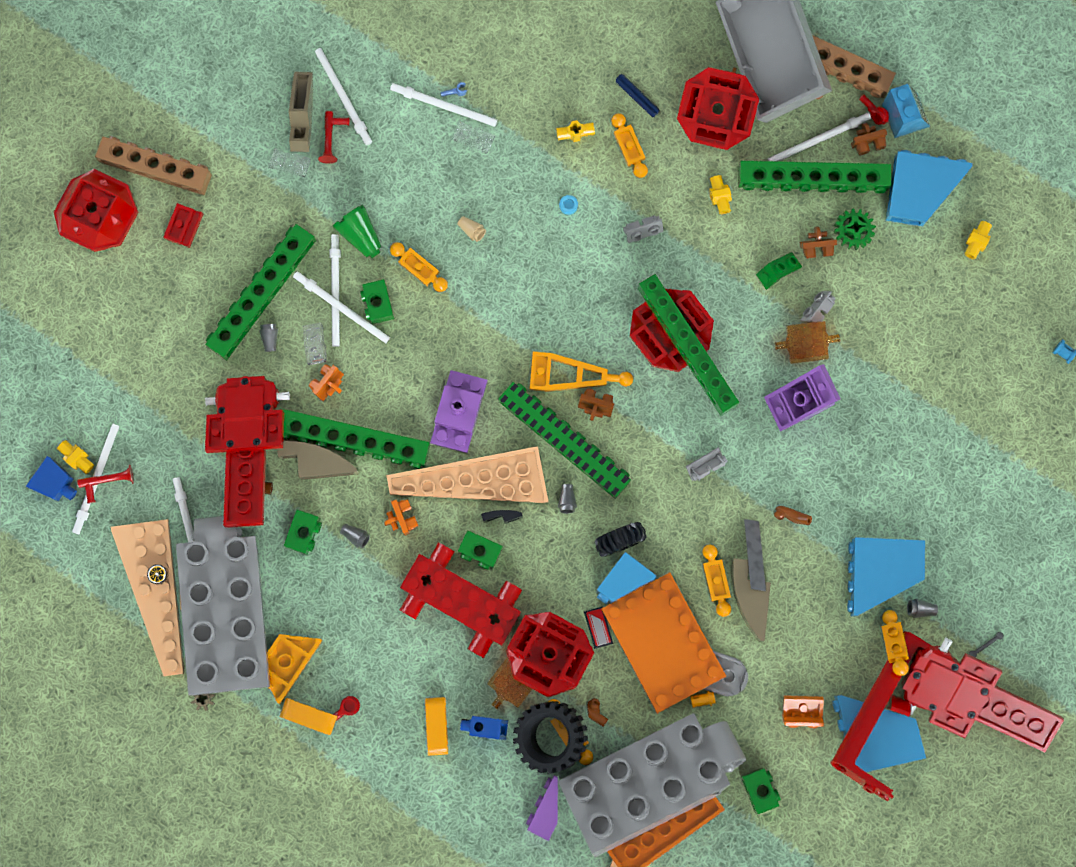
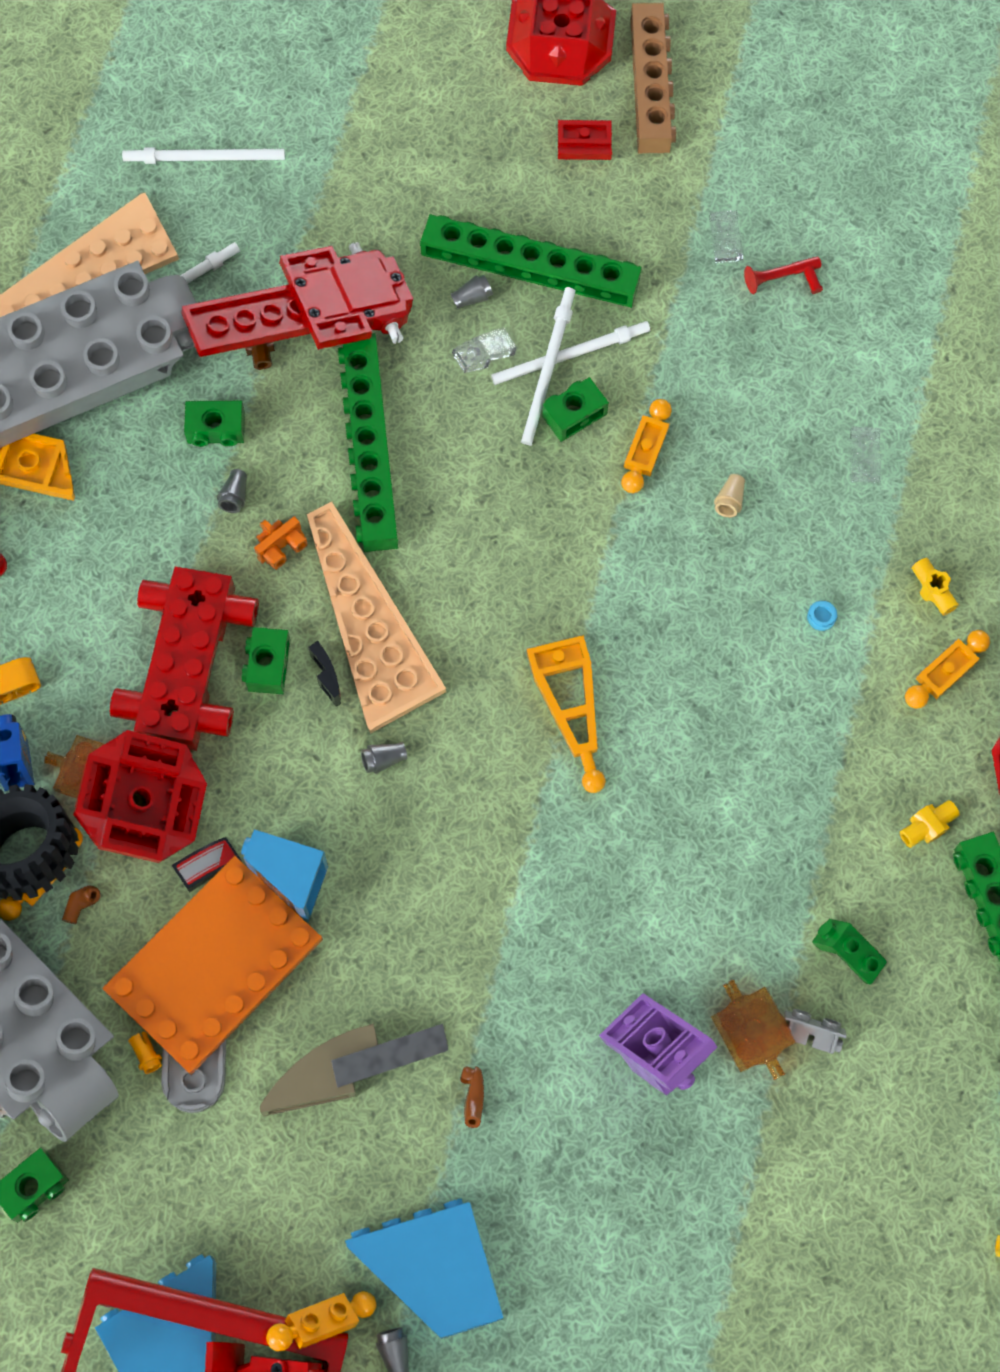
camera: 70 degrees right, 10 degrees down
(52, 481) = (182, 104): blue torso -> none
(75, 457) = (224, 121): yellow axle -> none
(89, 482) = (220, 187): red piece -> none
(157, 574) = (96, 263): tile -> none
(301, 111) = (802, 223): dark tan slope -> none
(316, 461) = (320, 405): dark tan slope -> none
(328, 384) = (435, 384): orange hips -> none
(359, 125) = (816, 304): white bar -> none
(359, 231) = (665, 348): green cone -> none
(409, 92) = (892, 352): white bar -> none
(456, 90) = (923, 410): medium blue hand -> none
(458, 411) = (459, 566): medium lavender brick -> none
(564, 440) = (467, 725): green brick -> none
(596, 406) = (533, 750): dark orange hips -> none
(620, 539) = (346, 846): black gear -> none
(650, 227) = (822, 722): light grey hinge -> none
(653, 340) = (697, 785): red piece -> none
(688, 345) = (671, 841): green brick -> none
(703, 465) = (505, 937): light grey hinge -> none
(716, 580) = (333, 1013): light orange plate -> none
(803, 711) = (171, 1212): orange bracket -> none
(826, 244) = (904, 984): dark orange hips -> none
(863, 226) = (968, 1055): green gear -> none

